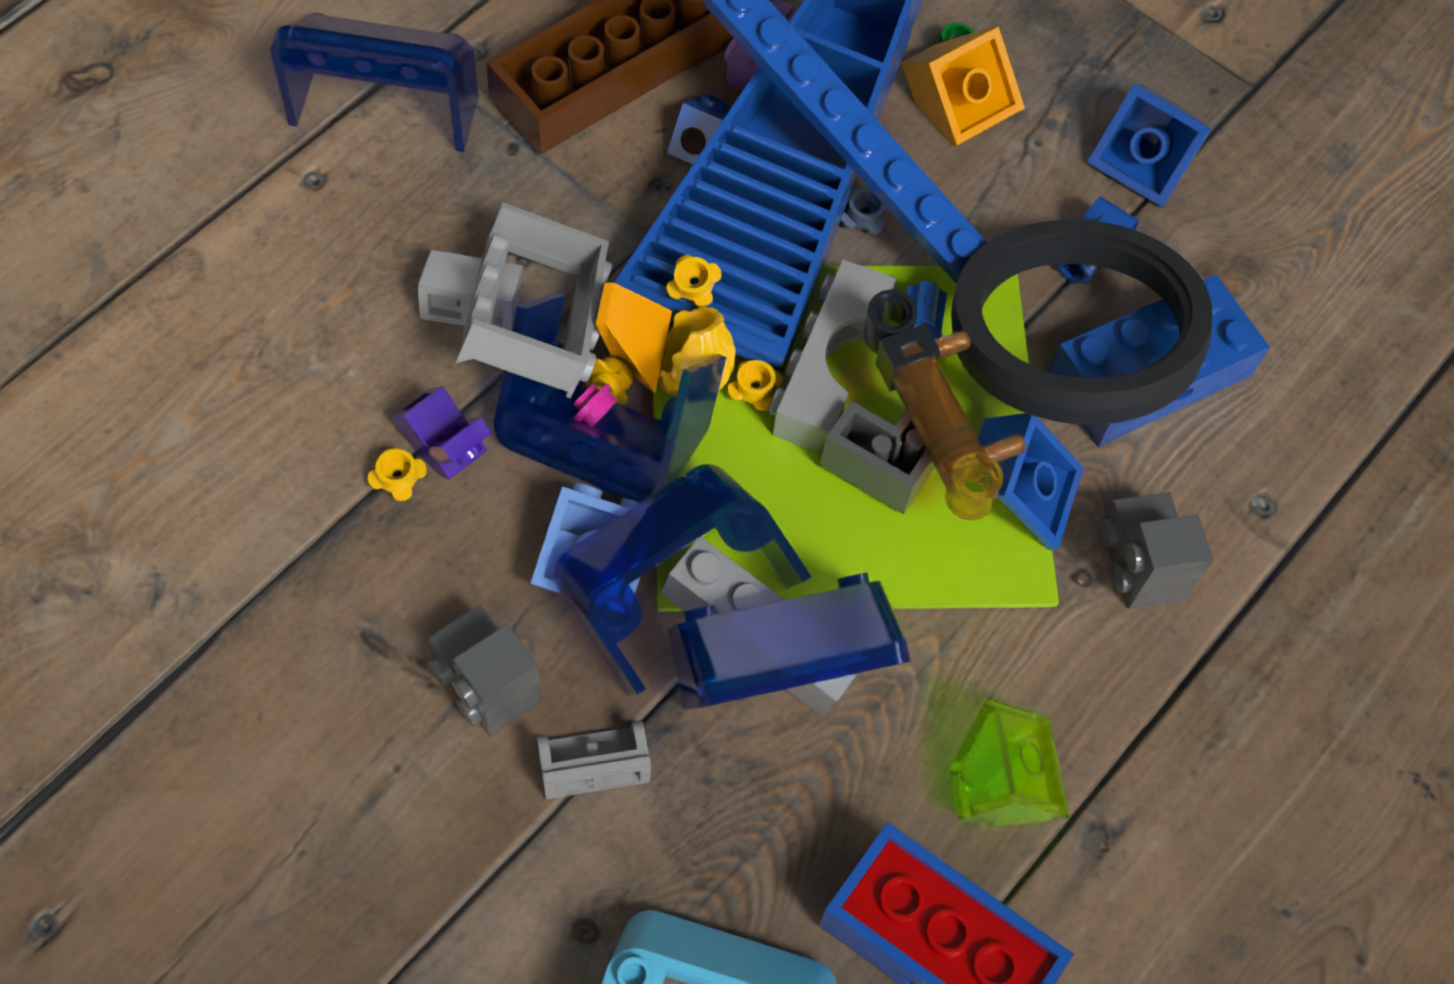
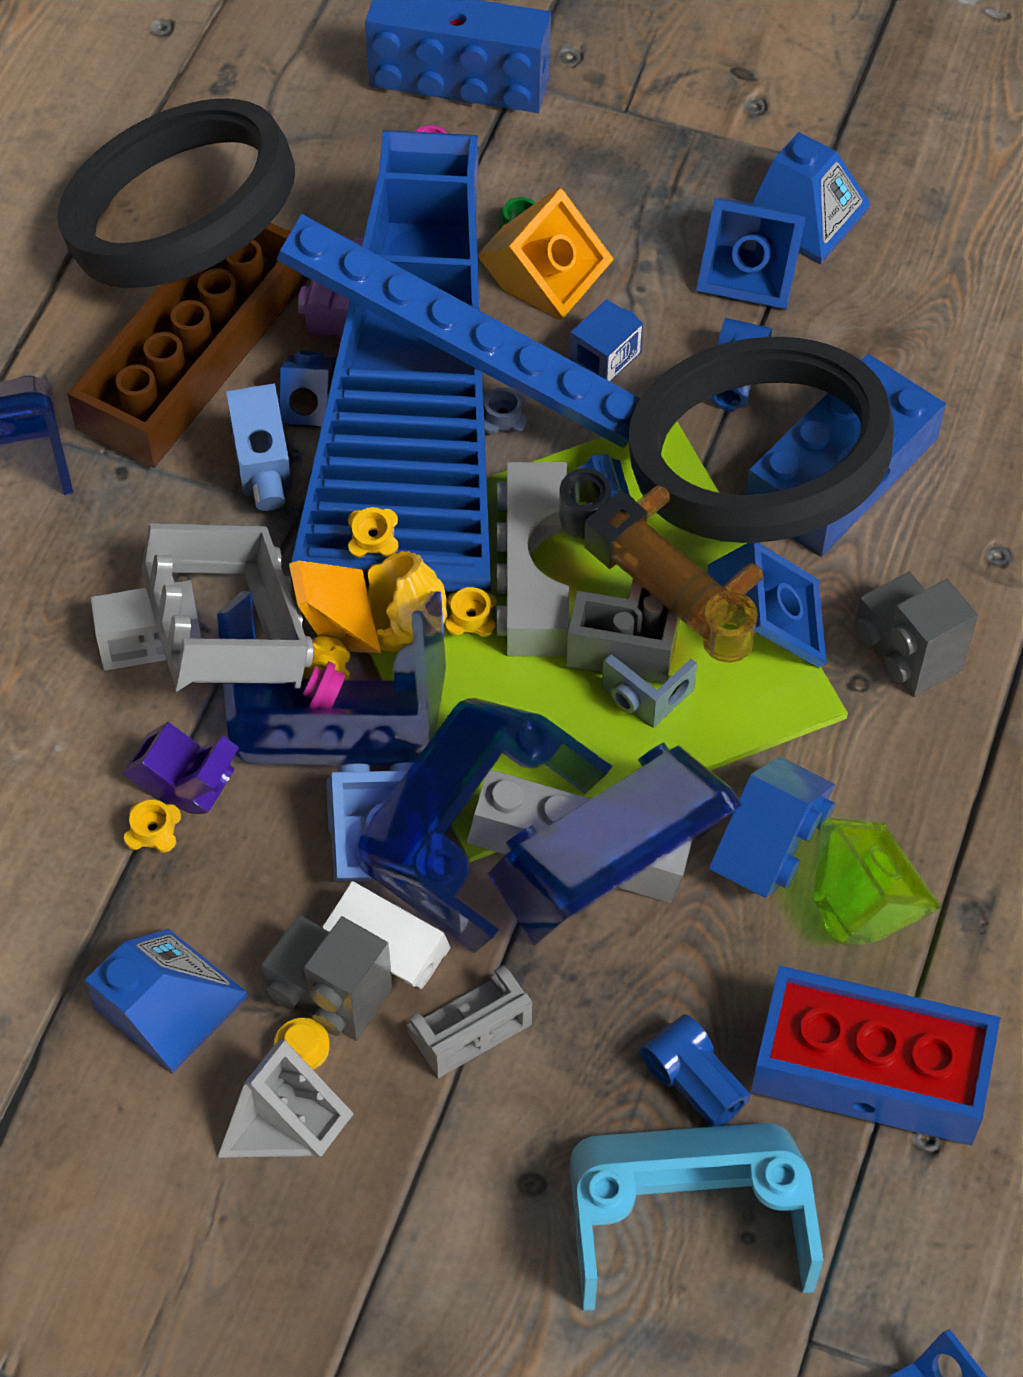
camera: 15 degrees left, 5 degrees down
(339, 629) = (163, 995): none -> blue slope
(393, 778) = (284, 1110): none -> light grey slope
(437, 722) = (307, 1039): none -> yellow plate
(564, 666) = (413, 944): none -> white hinge
(635, 165) = (259, 444): none -> medium blue torso
(770, 872) = (686, 1058): none -> blue piece
(868, 515) = (638, 696): none -> sand blue bracket
(945, 675) = (776, 813): none -> blue brick
(984, 180) = (607, 340): none -> blue brick
(1237, 106) = (818, 185): none -> blue slope

